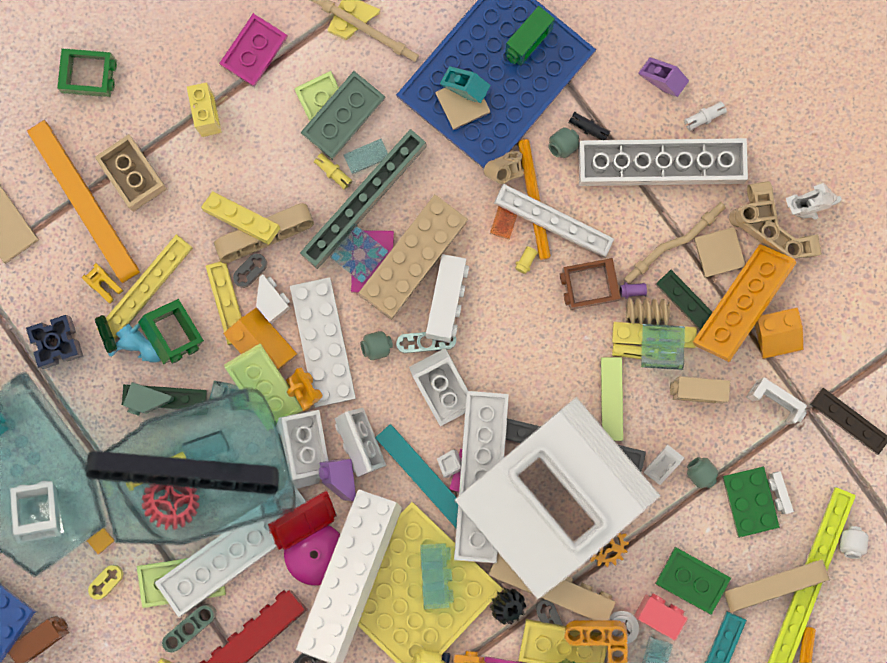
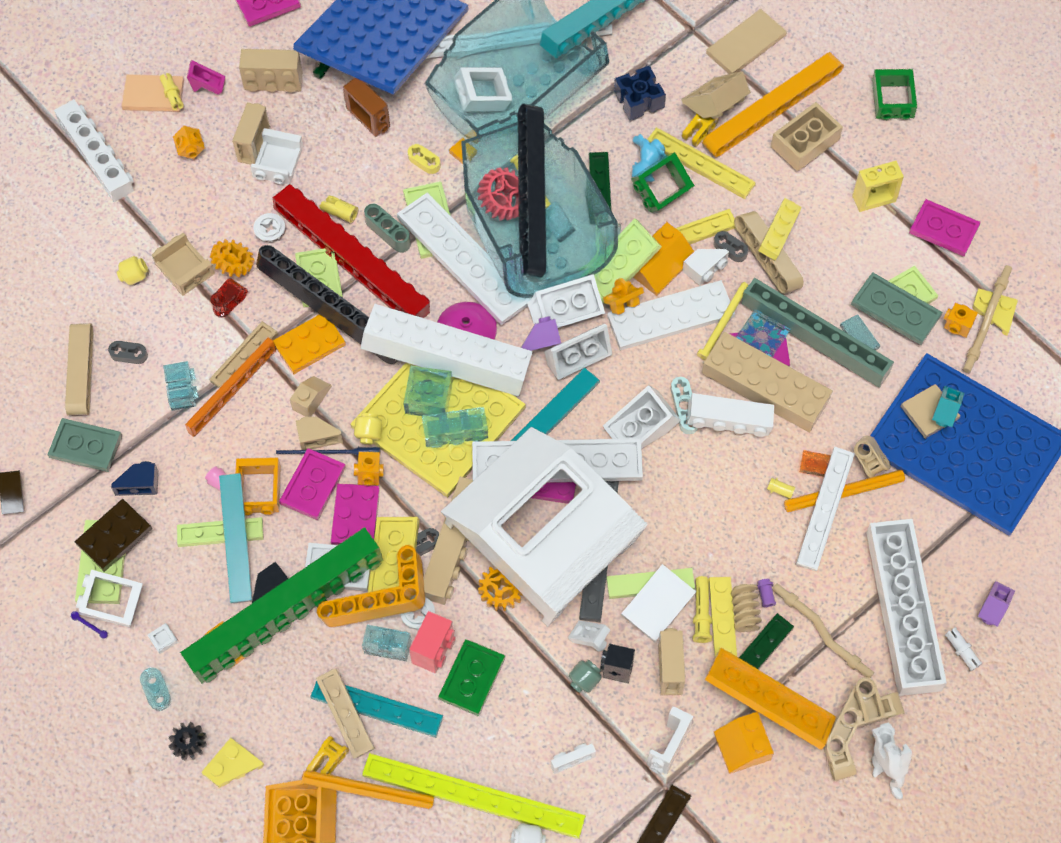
camera: 80 degrees right, 20 degrees down
(69, 259) = (718, 95): none -> tan slope
(106, 334) = (652, 130): dark green axle -> none
(144, 399) = (597, 163): sand green slope -> none
(303, 521) = (496, 305): red piece -> none
(333, 171) = (840, 306): light yellow pin -> none
(340, 290) = (703, 353): none -> light yellow bar
(357, 53) = (960, 319): none -> light orange brick
(376, 345) = (674, 359): sand green head -> none
(396, 600) = (427, 391): none -> clear light blue brick
(449, 463) = (566, 433): white tile -> none
(508, 606) = (423, 501): black gear -> none
(529, 36) = (1009, 459): green window -> none
(563, 142) = (908, 508): sand green head -> none
(589, 126) = (929, 535): black pin -> none
(611, 279) = (771, 569): dark orange window -> none
(635, 394) = (658, 603): none -> white tile
(662, 346) = (711, 621): clear light blue slope -> none
(697, 440) = (617, 663): none -> black brick
(719, 252) = (820, 677): tan tile -> none
(750, 502) = (559, 730): green plate -> none
(776, 585) = (474, 759): tan beam -> none

